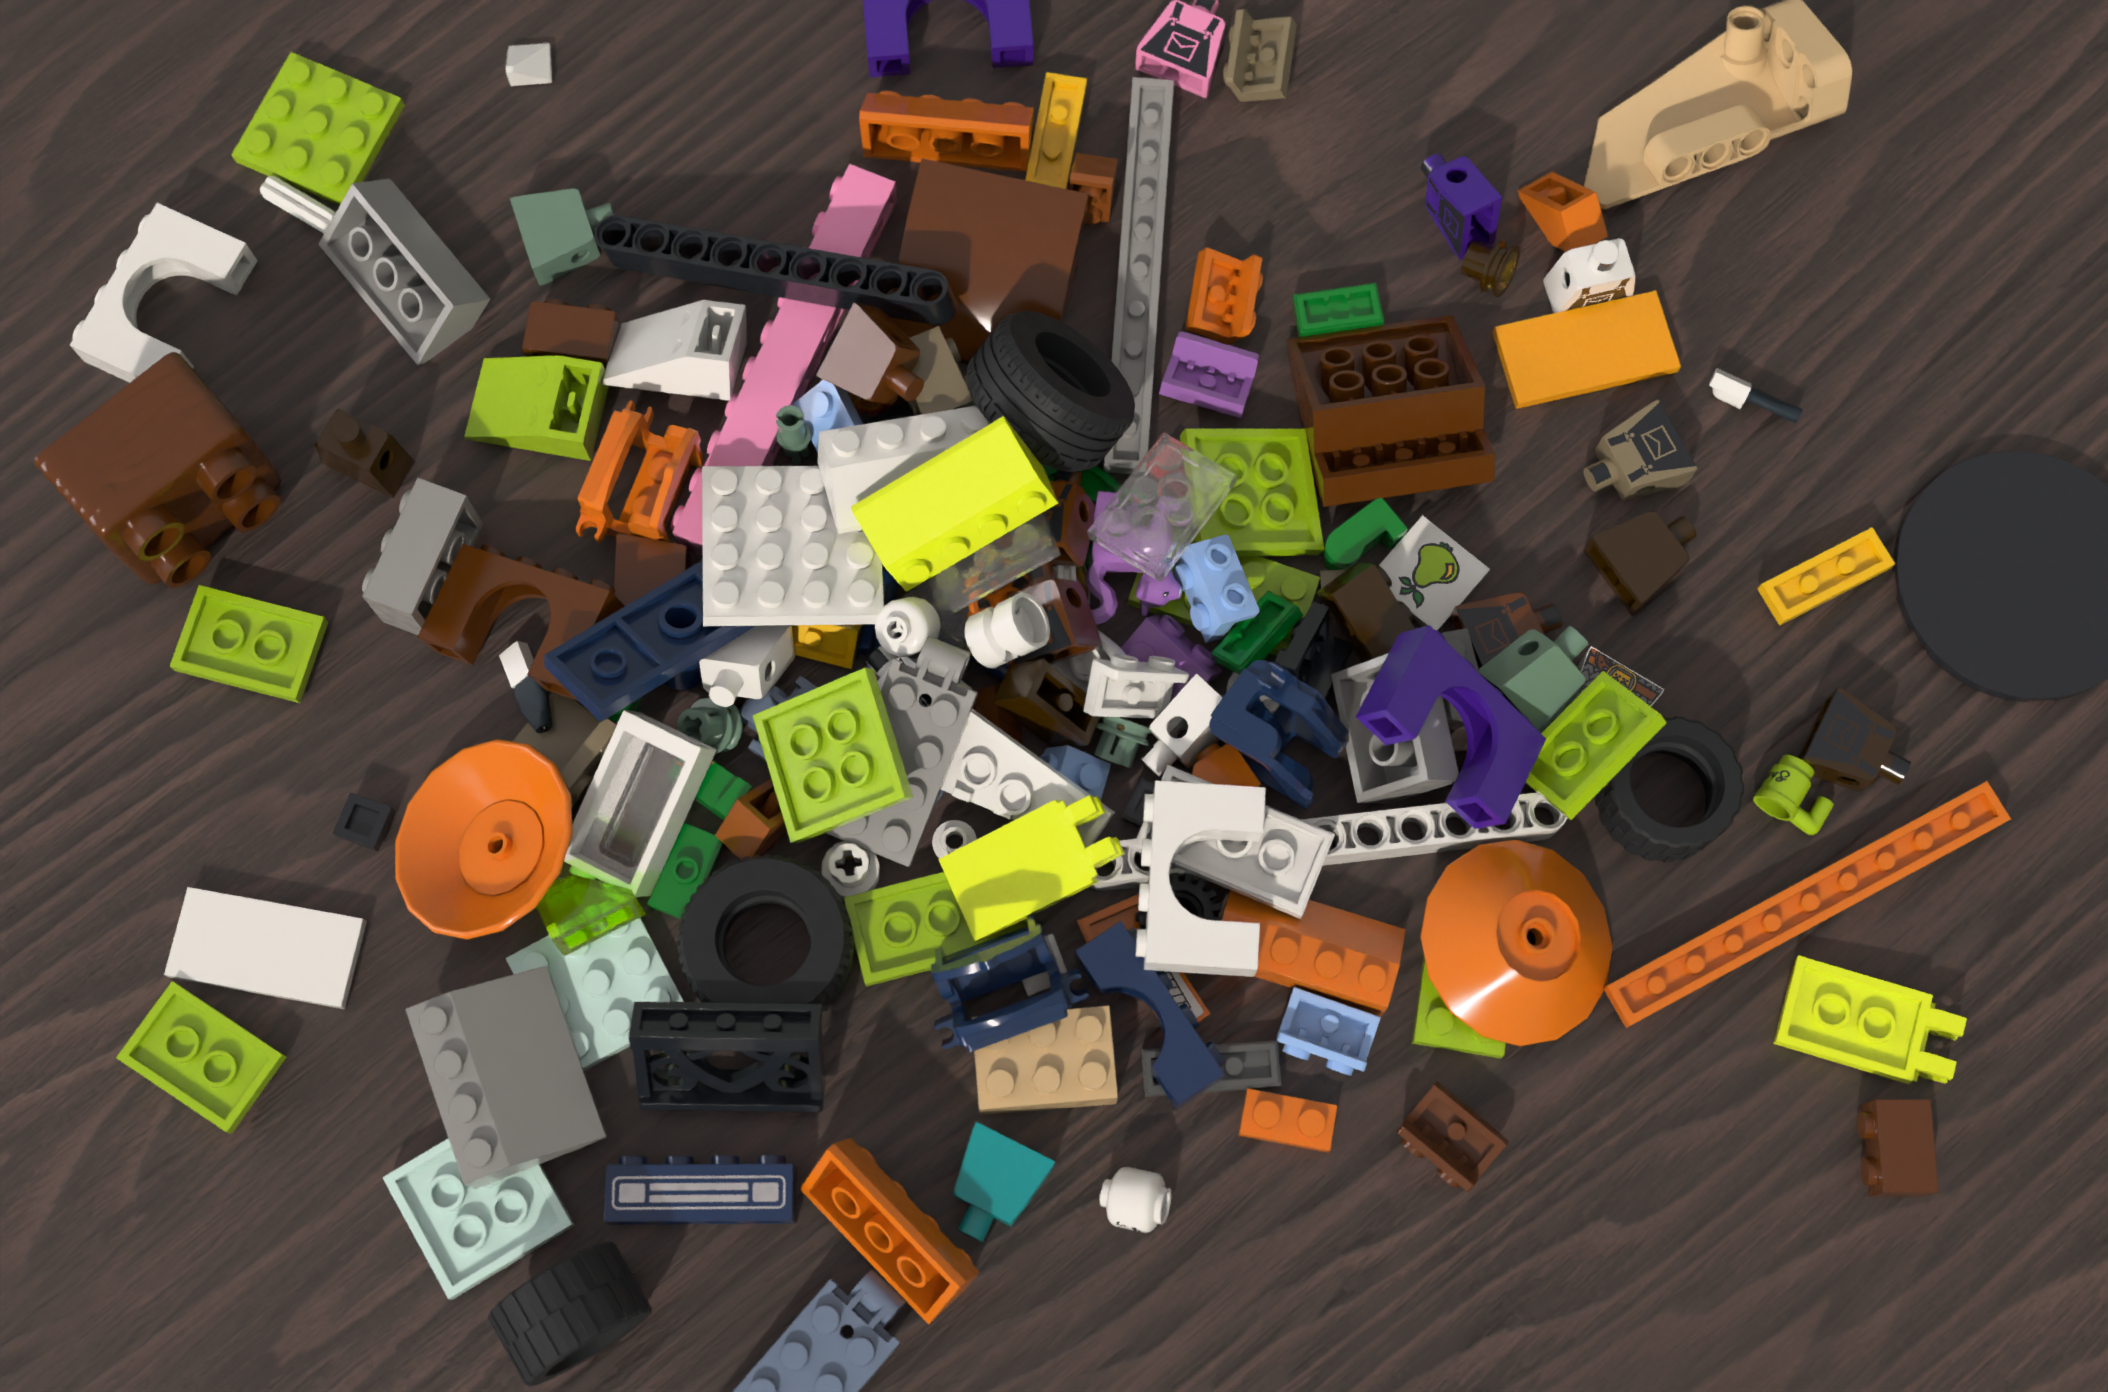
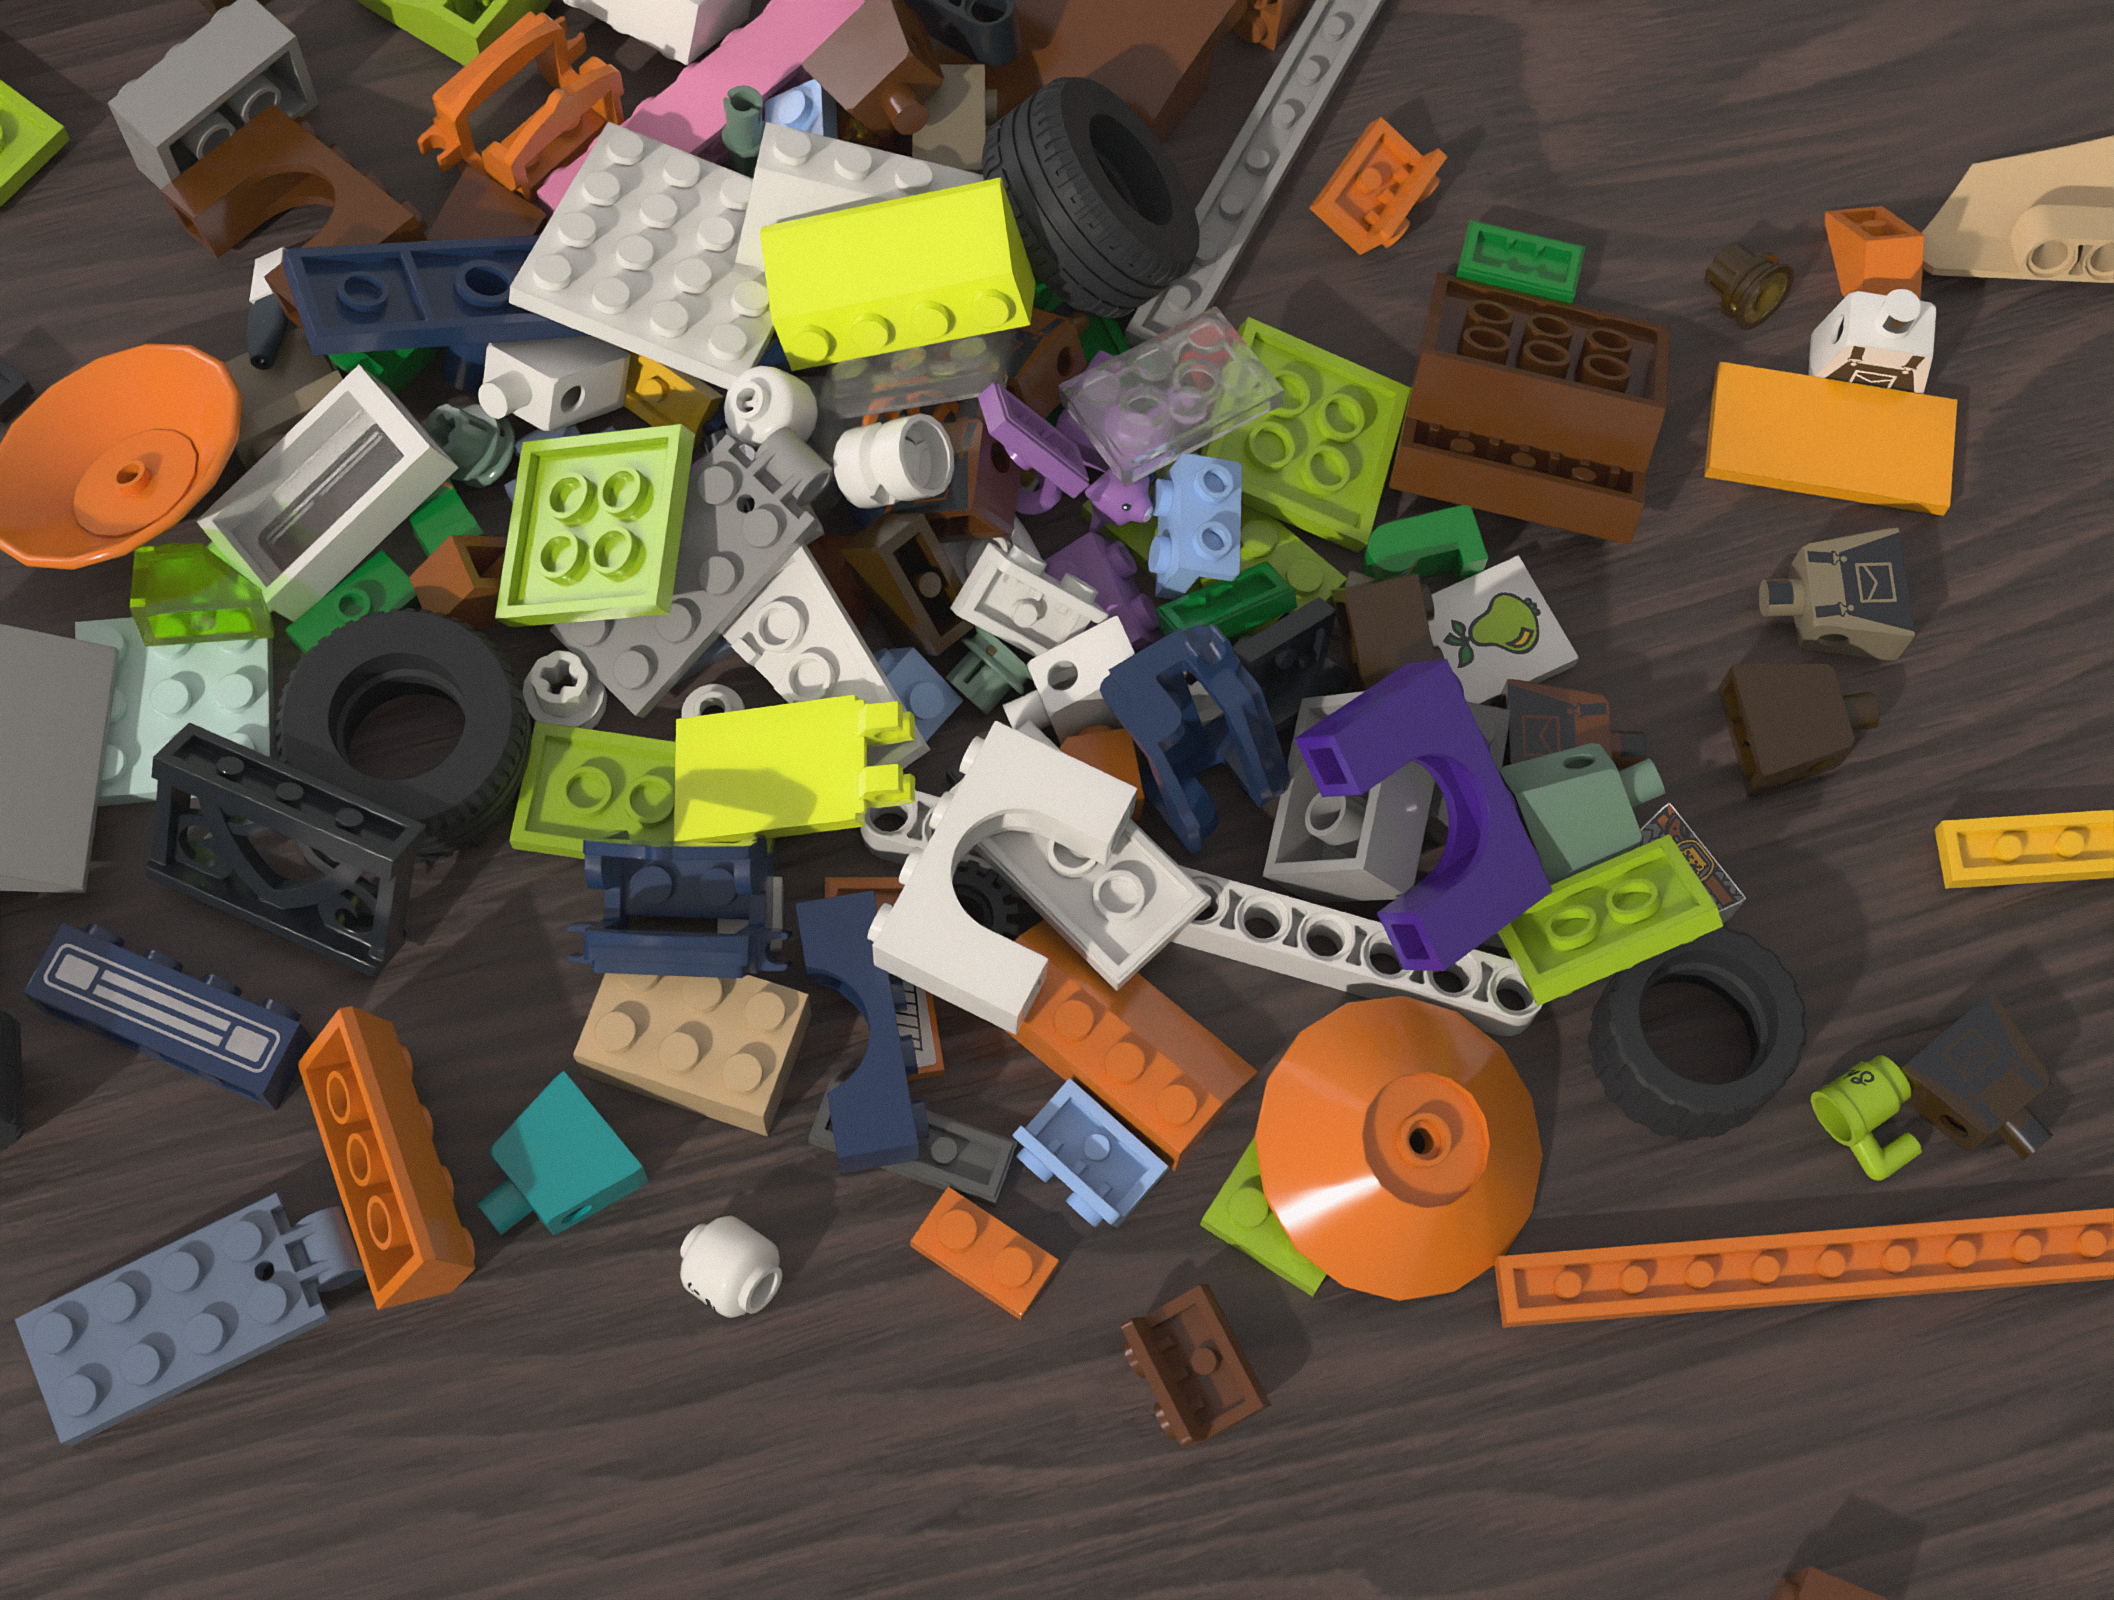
camera: 20 degrees right, 5 degrees down
(1091, 577) = (1033, 440): none -> medium lavender plate
(1210, 374) = (1316, 273): medium lavender bracket -> none
(1461, 202) = (1743, 171): dark purple torso -> none
(1736, 391) = (2012, 567): piece -> none
(1864, 1023) = (1843, 1462): neon yellow tile -> none

